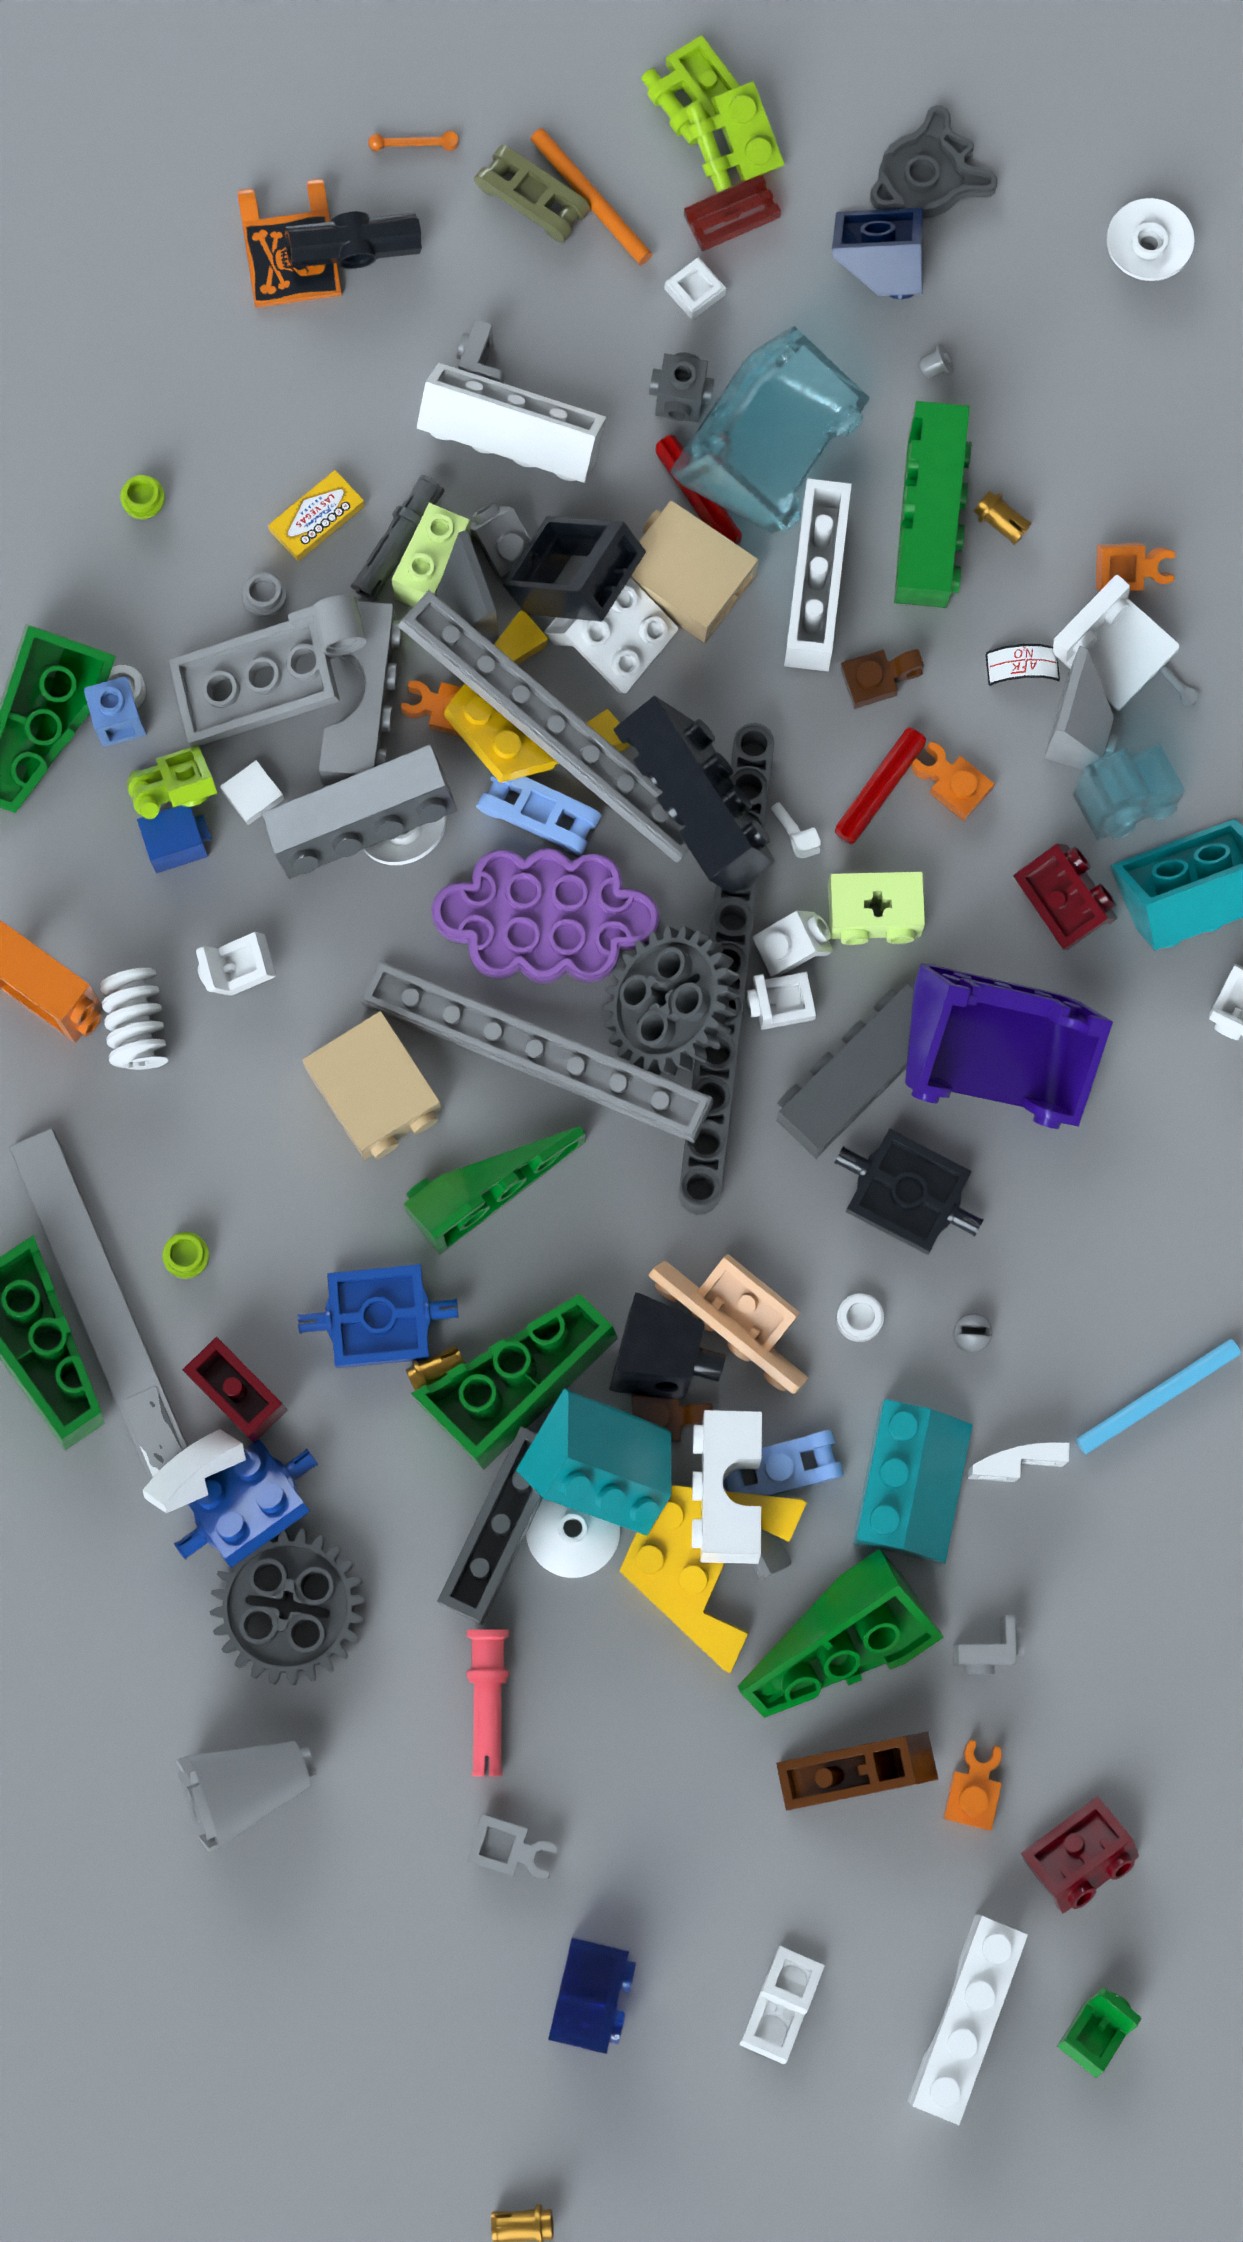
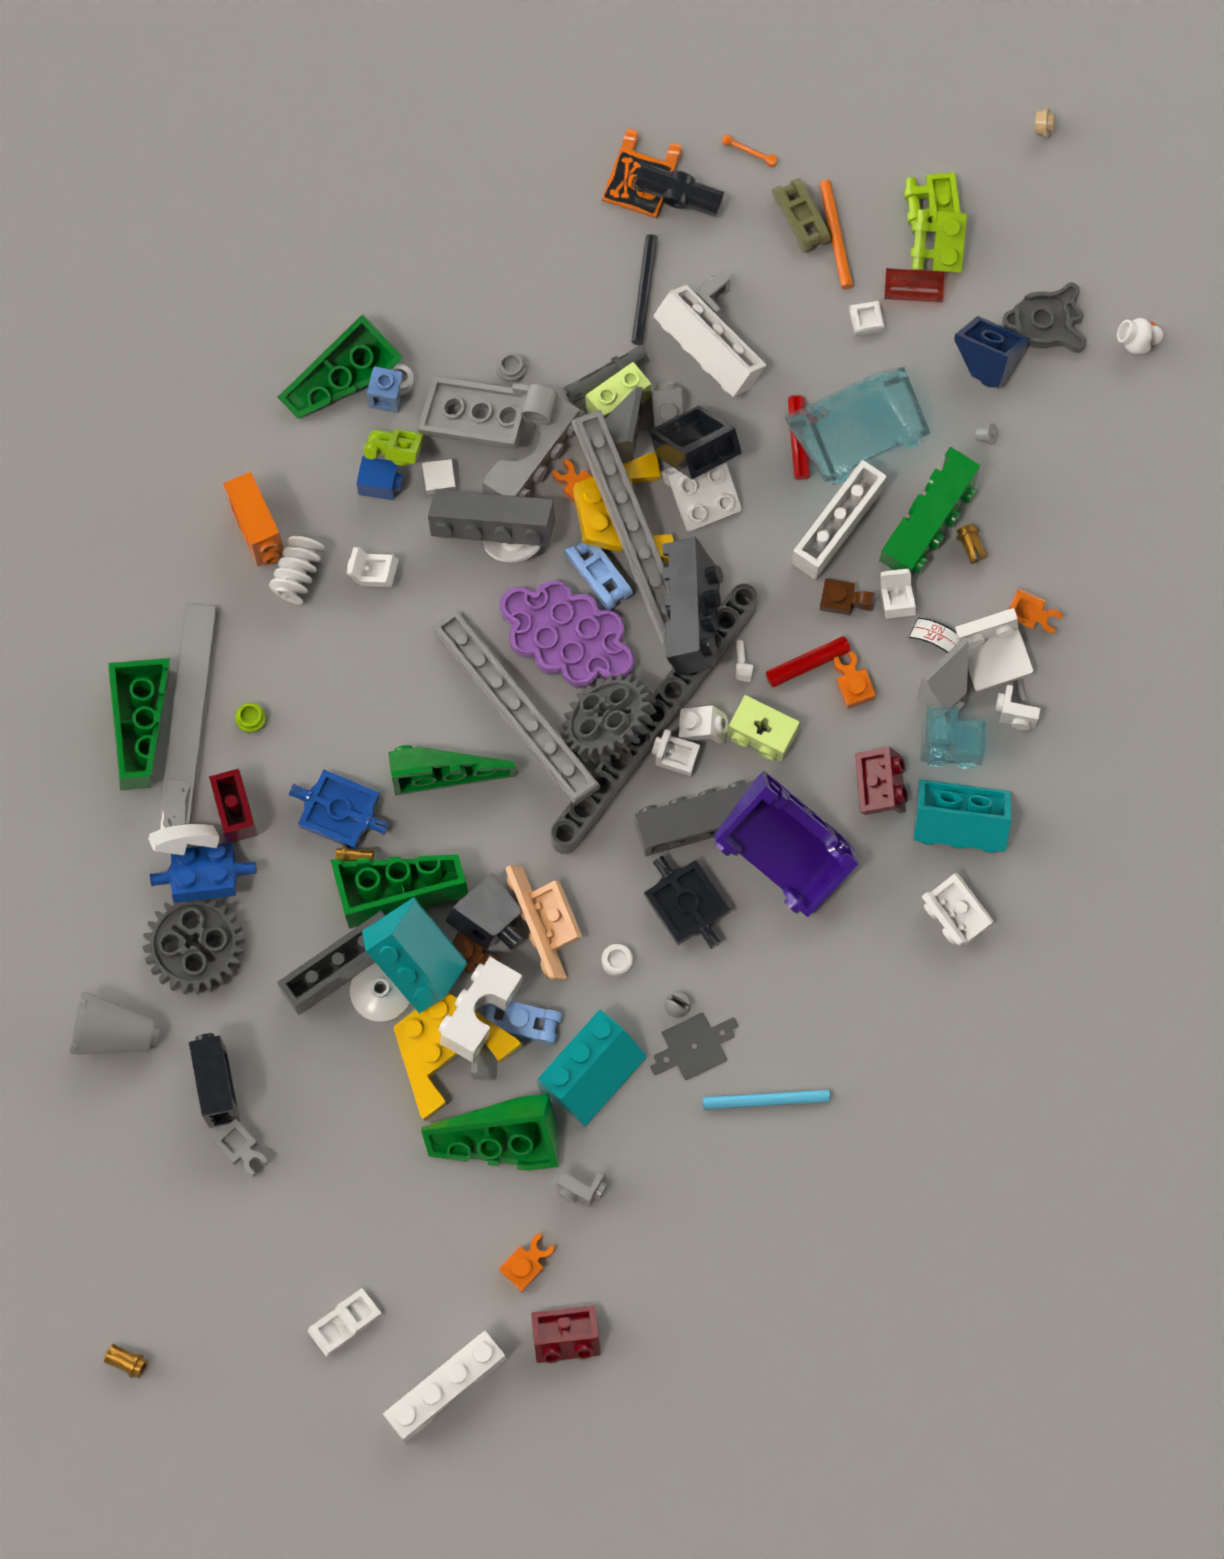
camera: 30 degrees right, 5 degrees down
(142, 497) = (473, 276): lime plate -> none
(316, 515) = (567, 337): tile -> none
(373, 1087) = (410, 678): tan brick -> none
(381, 398) = (644, 289): none -> black bar
(425, 1779) = (214, 1080): none -> black window
(487, 1674) = (283, 1045): coral pin -> none
(589, 1995) = (237, 1252): clear blue brick -> none
(681, 387) = (822, 370): dark grey brick -> none
(692, 570) = (766, 480): tan brick -> none
(857, 1771) = (465, 1213): reddish brown slope -> none
(946, 635) = (897, 593): none -> white bracket
(1001, 1376) = (690, 1060): none -> dark grey piece
(1007, 1464) = (651, 1087): white slope -> none
(1059, 132) = (1139, 335): none -> white animal
(1098, 2031) = (517, 1437): green bracket -> none
(1153, 223) = (1159, 414): white dish -> none
(1191, 713) = (1020, 716): none -> white bracket

